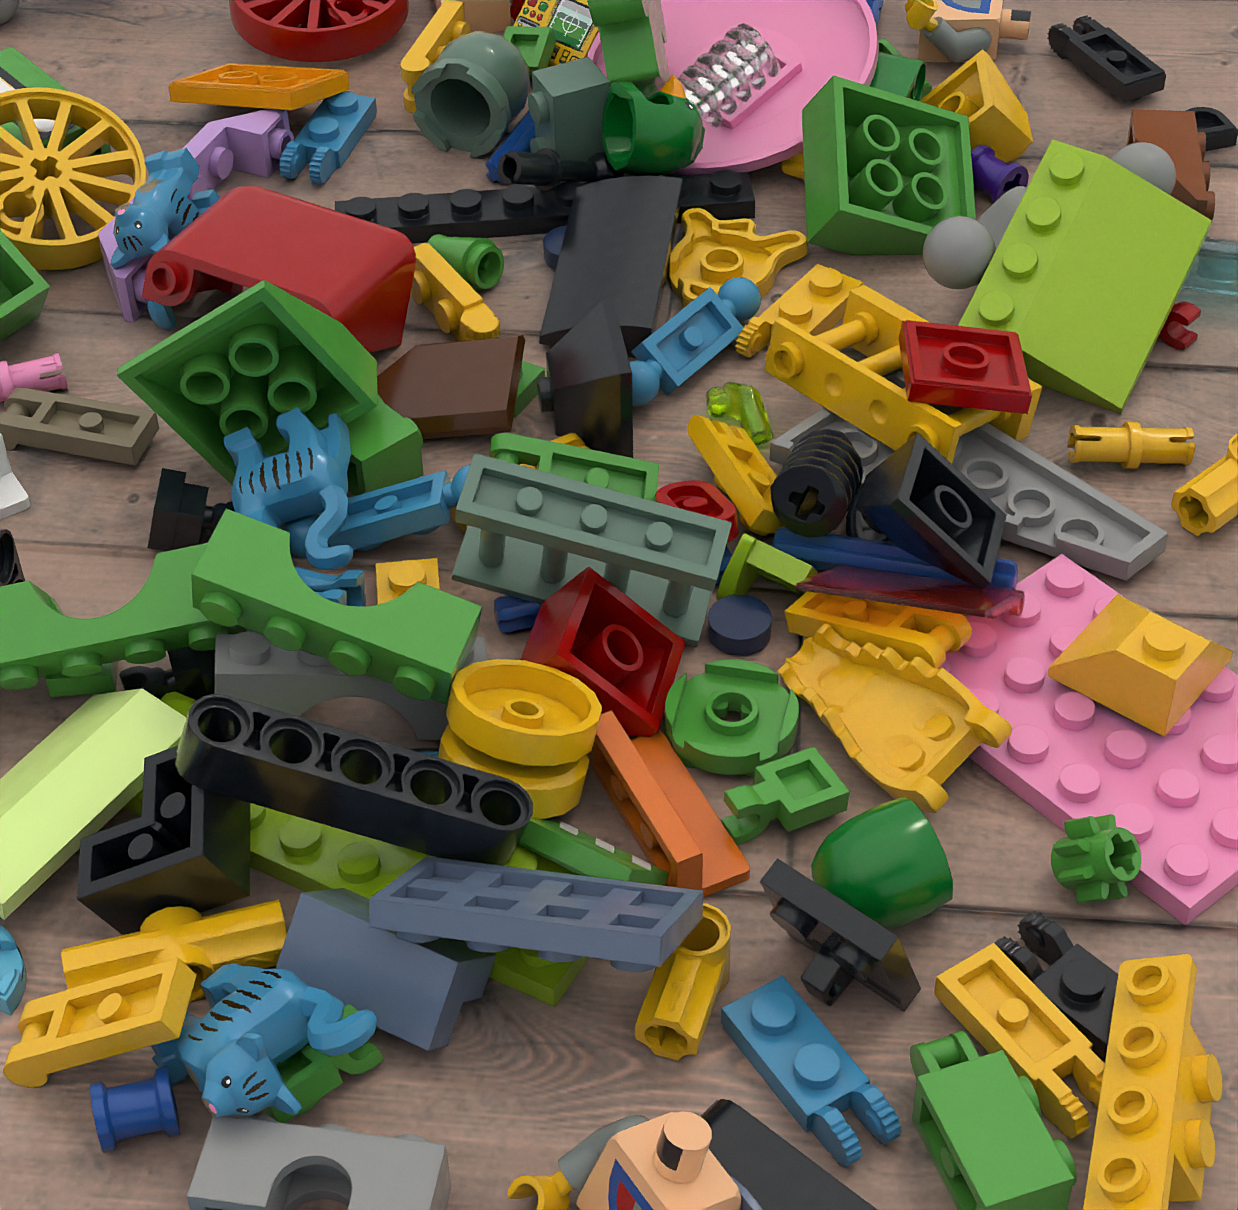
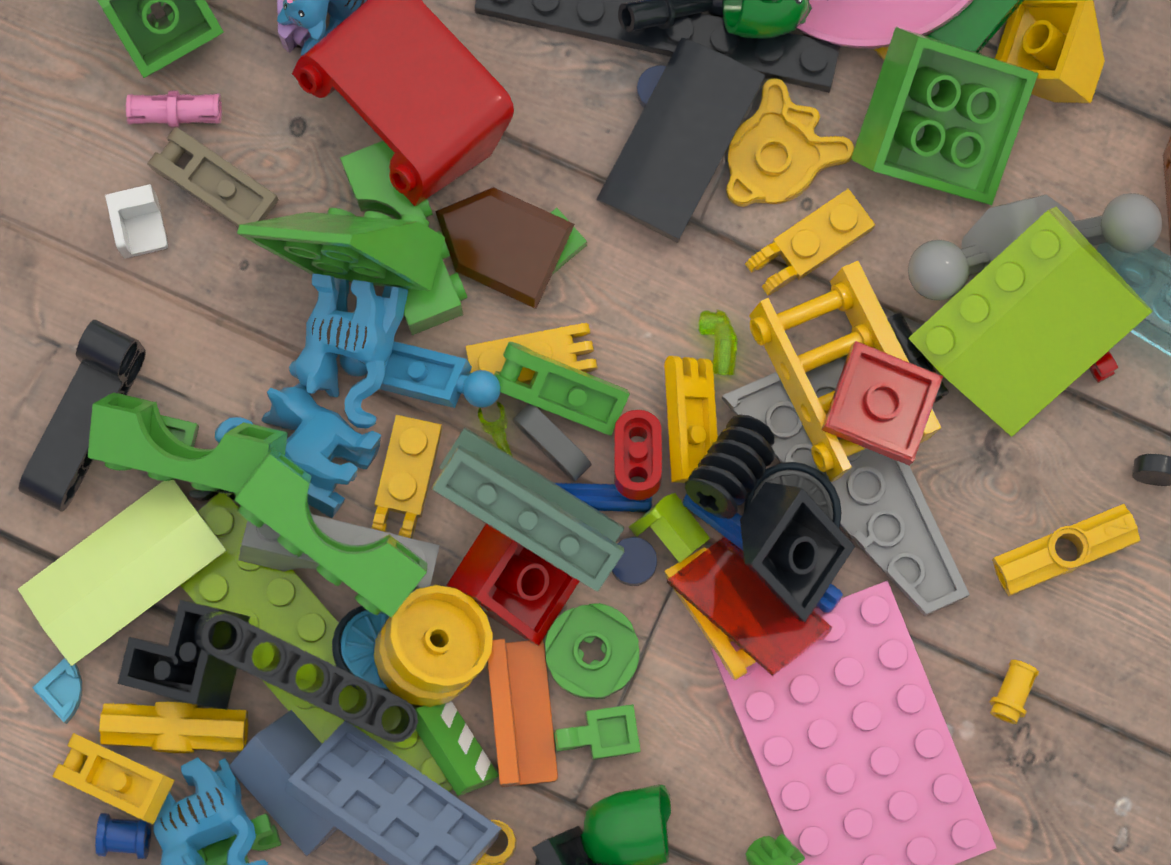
camera: 20 degrees right, 35 degrees up
(181, 513) = (270, 317): black piece -> none
(451, 298) = (539, 147): yellow hinge -> none
(472, 258) = (569, 85): bright green cone -> none
(591, 383) = (606, 292): black slope -> none
(691, 338) = (707, 251): dark azure plate -> none
(892, 715) = (695, 698): yellow animal -> none
(994, 175) = (1042, 128): dark purple bush -> none
(1130, 445) = (994, 486): yellow pin -> none
(1140, 664) = (883, 714): yellow slope -> none

